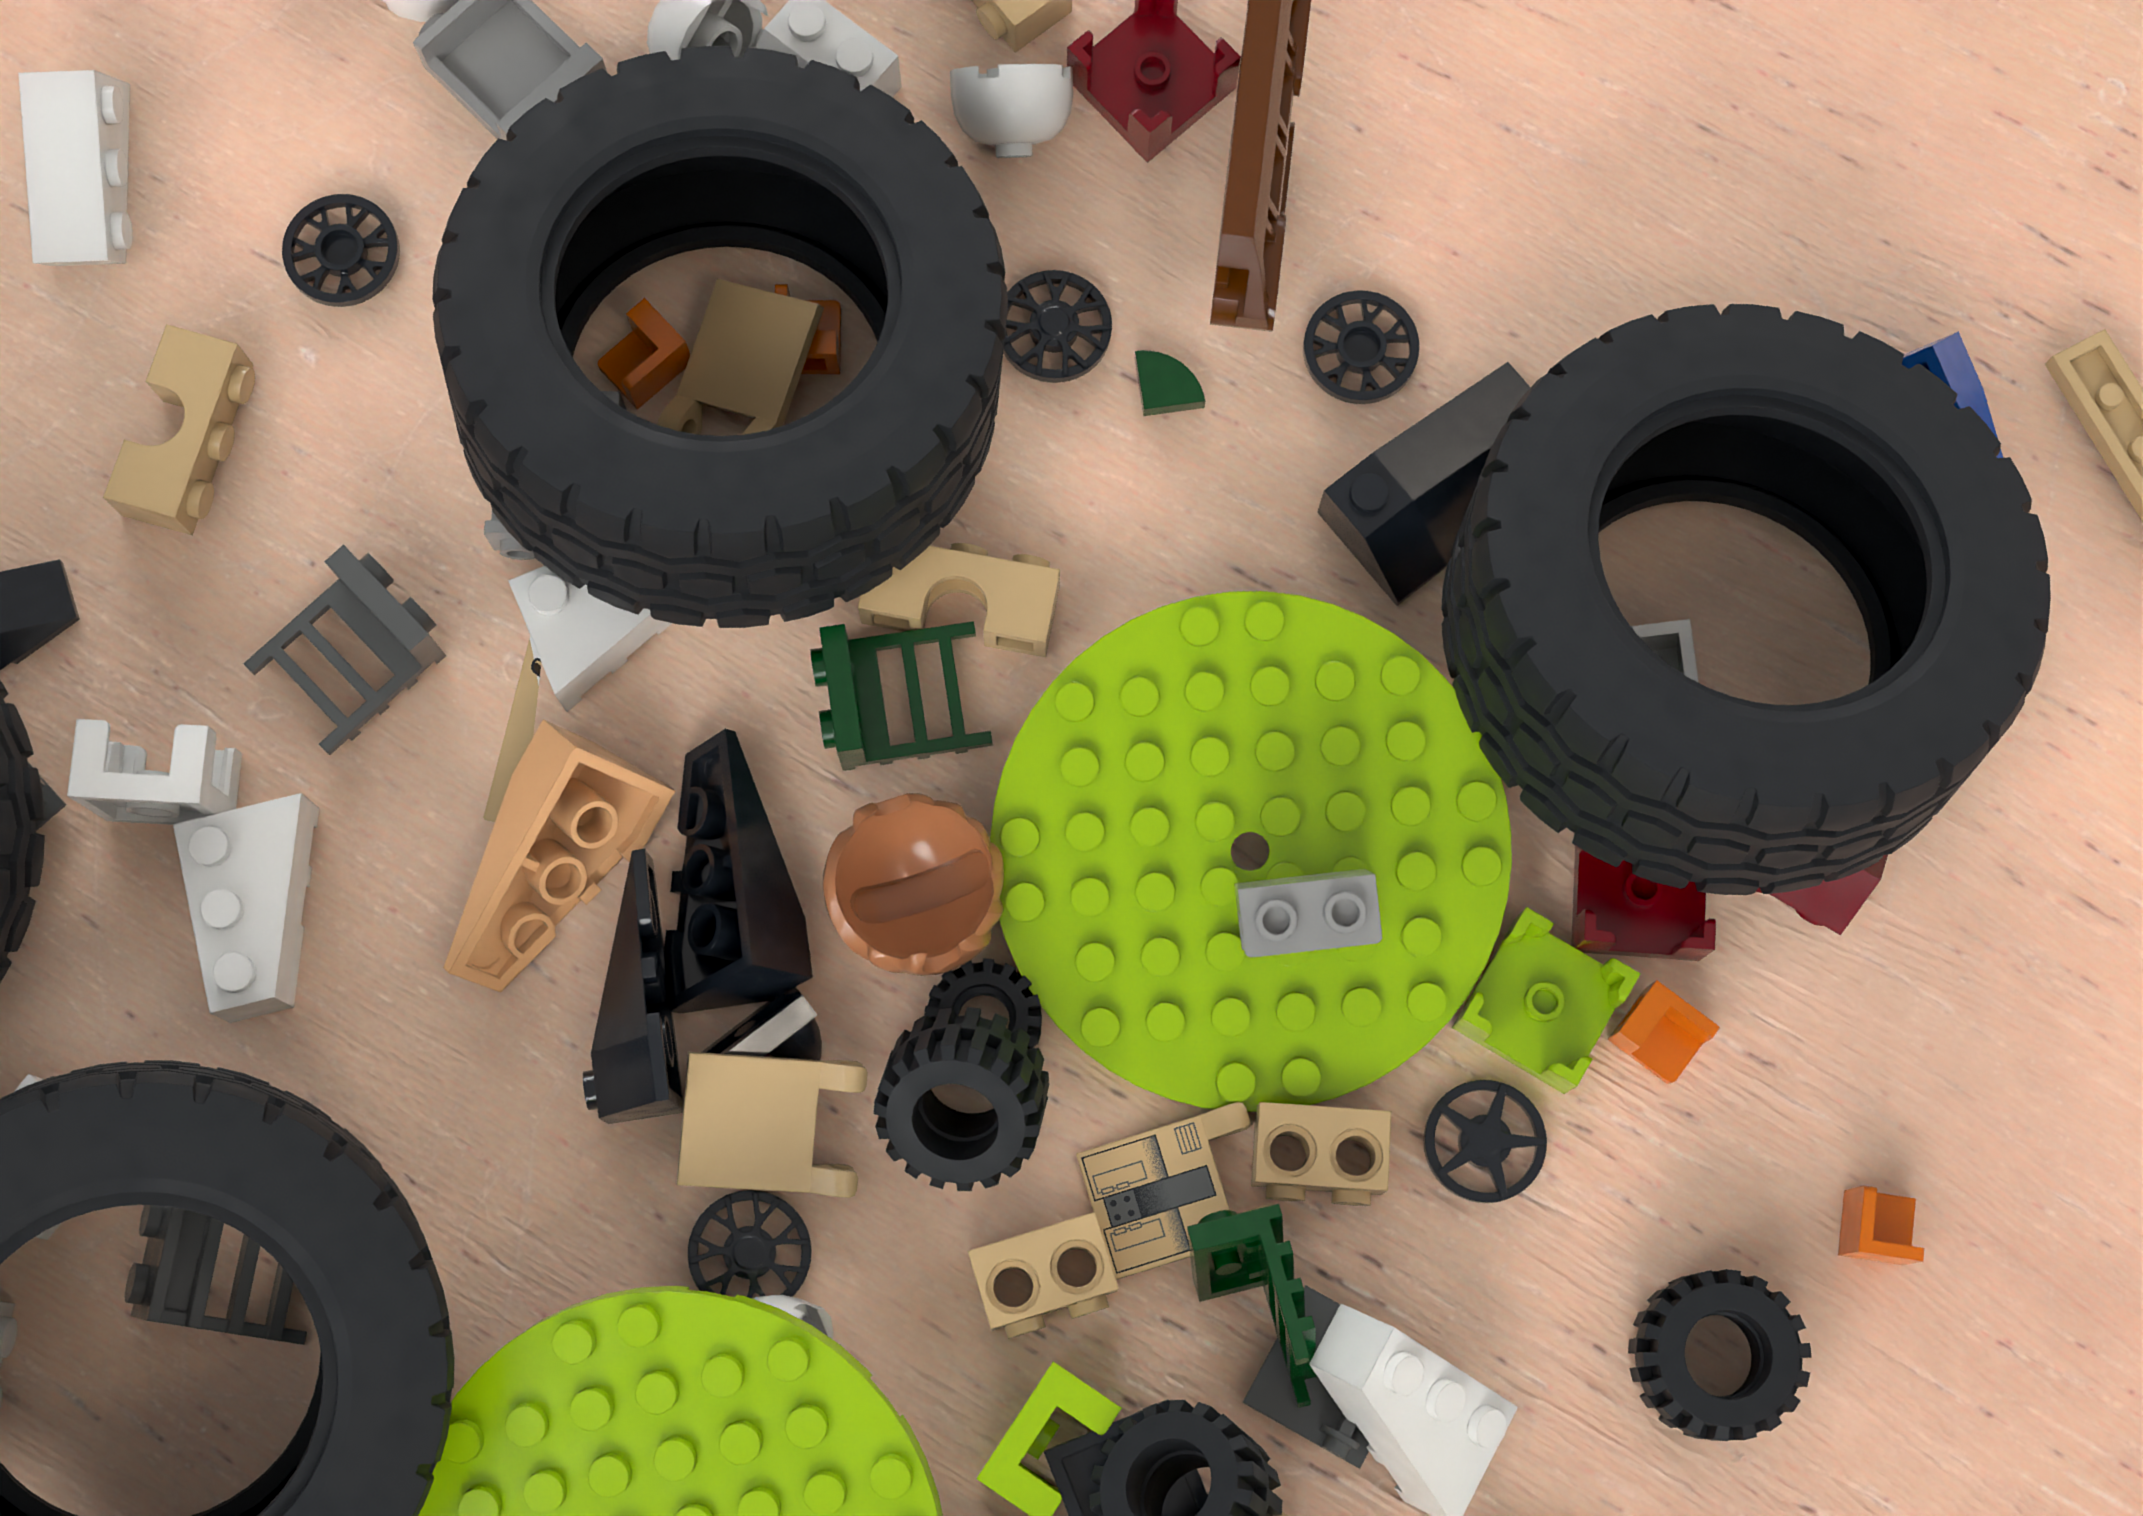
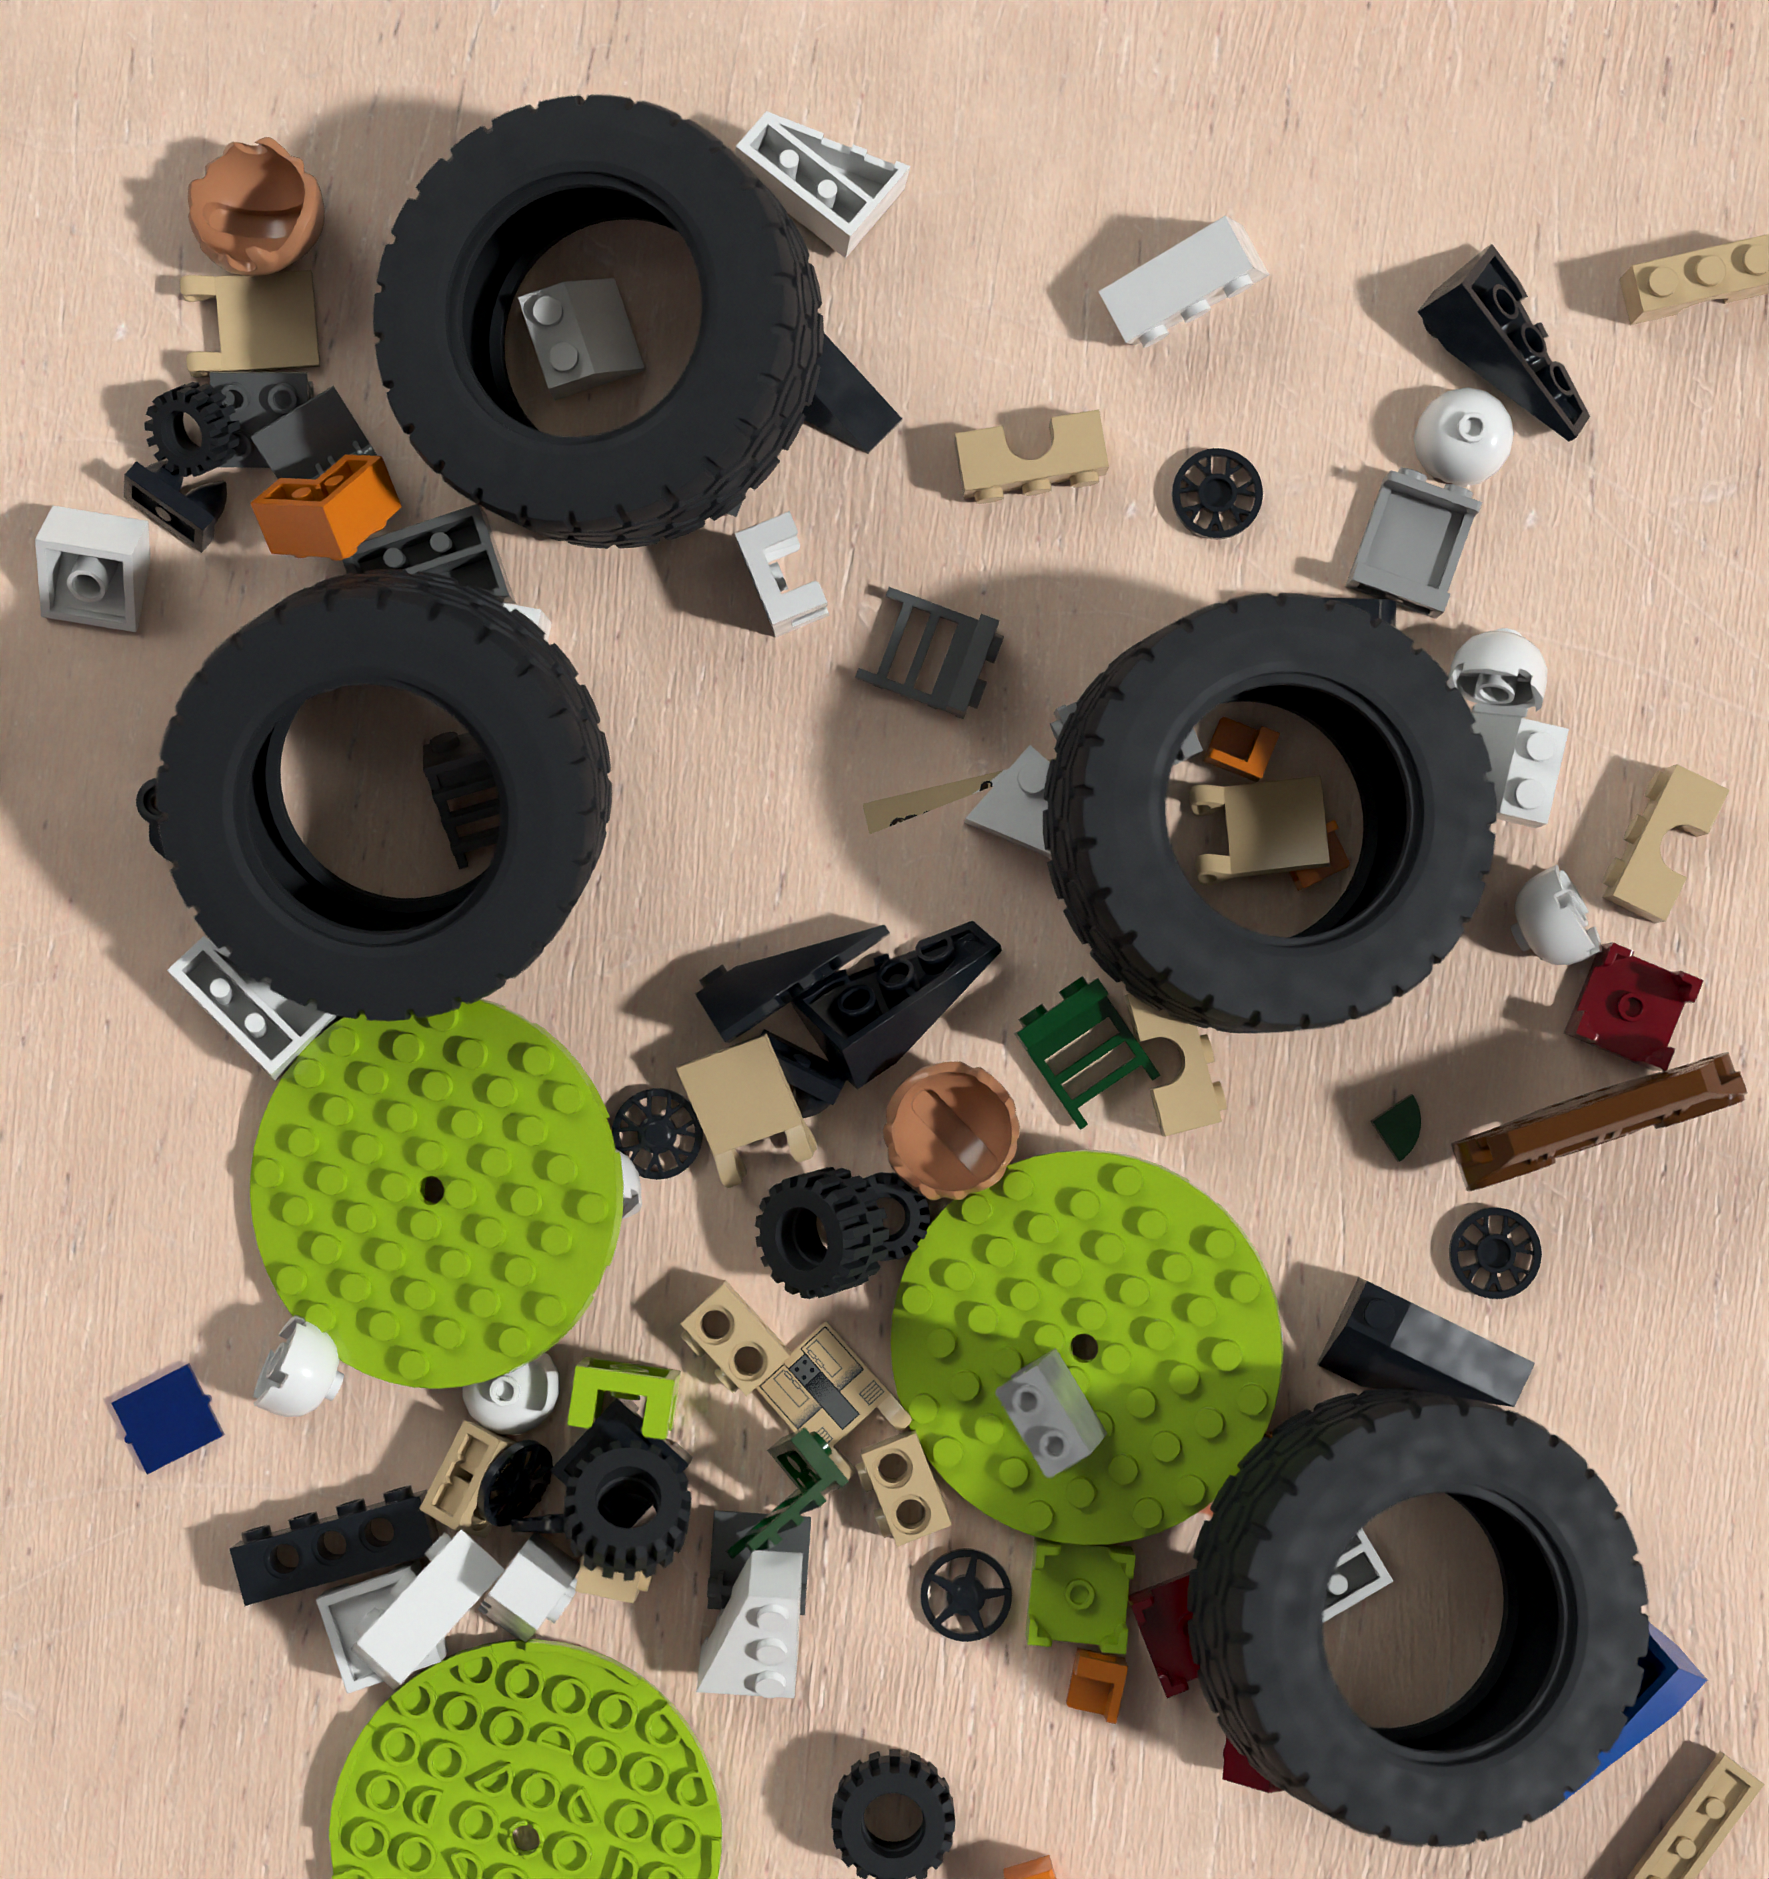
camera: 70 degrees right, 10 degrees up
(246, 901) = (727, 679): white wedge -> none
(556, 836) = (876, 863): light nougat wedge -> none
(1056, 326) = (1407, 1027): black wheel -> none

